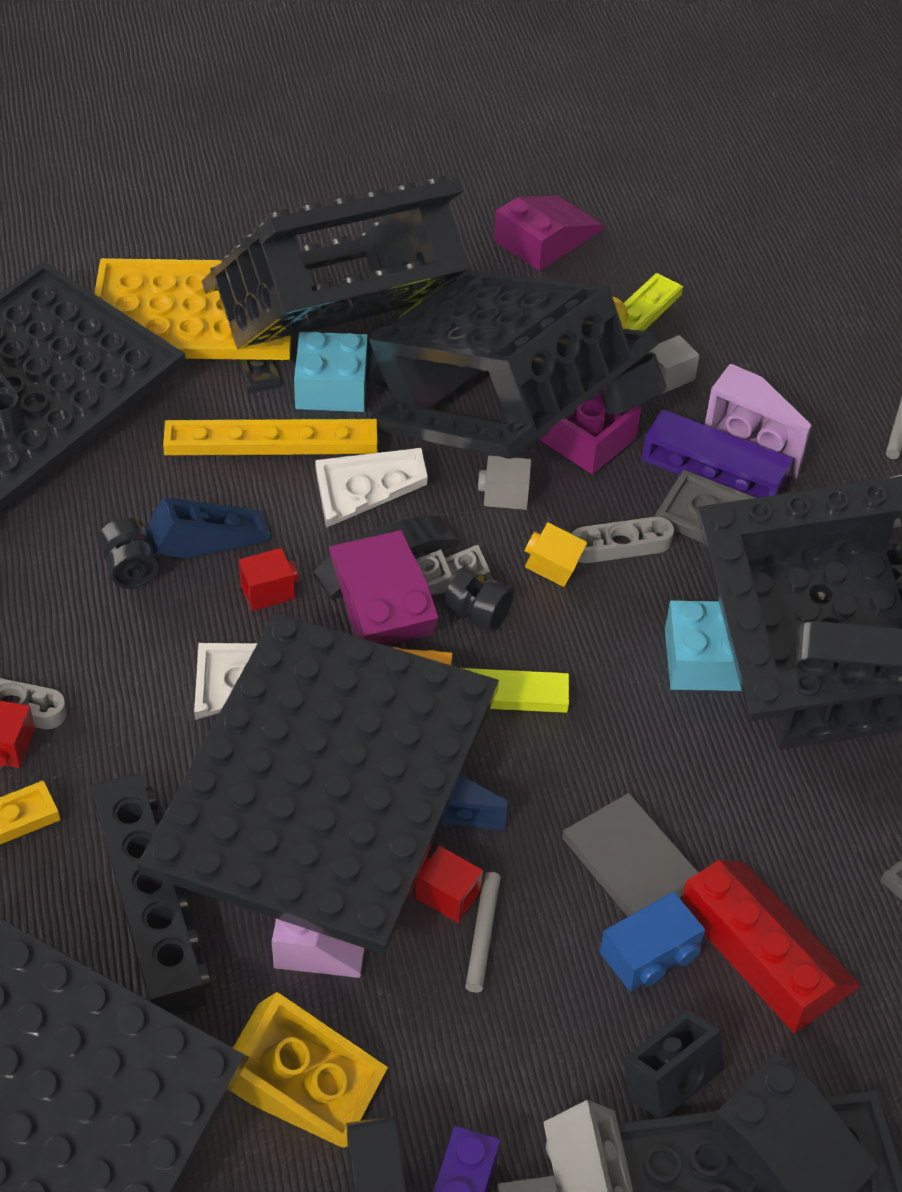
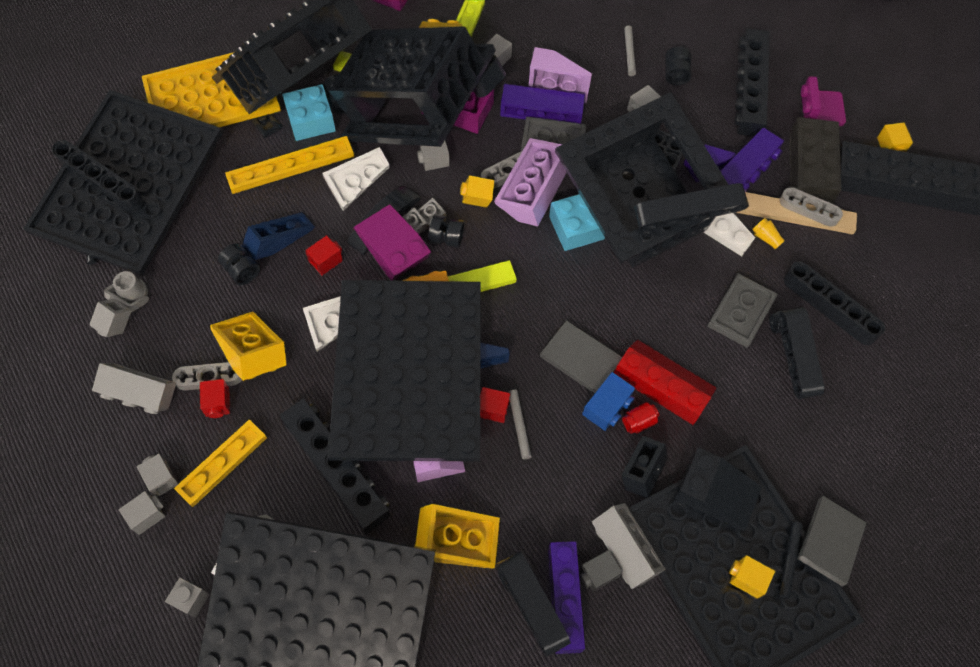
camera: 20 degrees left, 15 degrees up
(92, 674) = (249, 345): none -> yellow slope
(648, 568) = (532, 182): none -> lavender slope
(699, 986) = (640, 418): none -> red brick

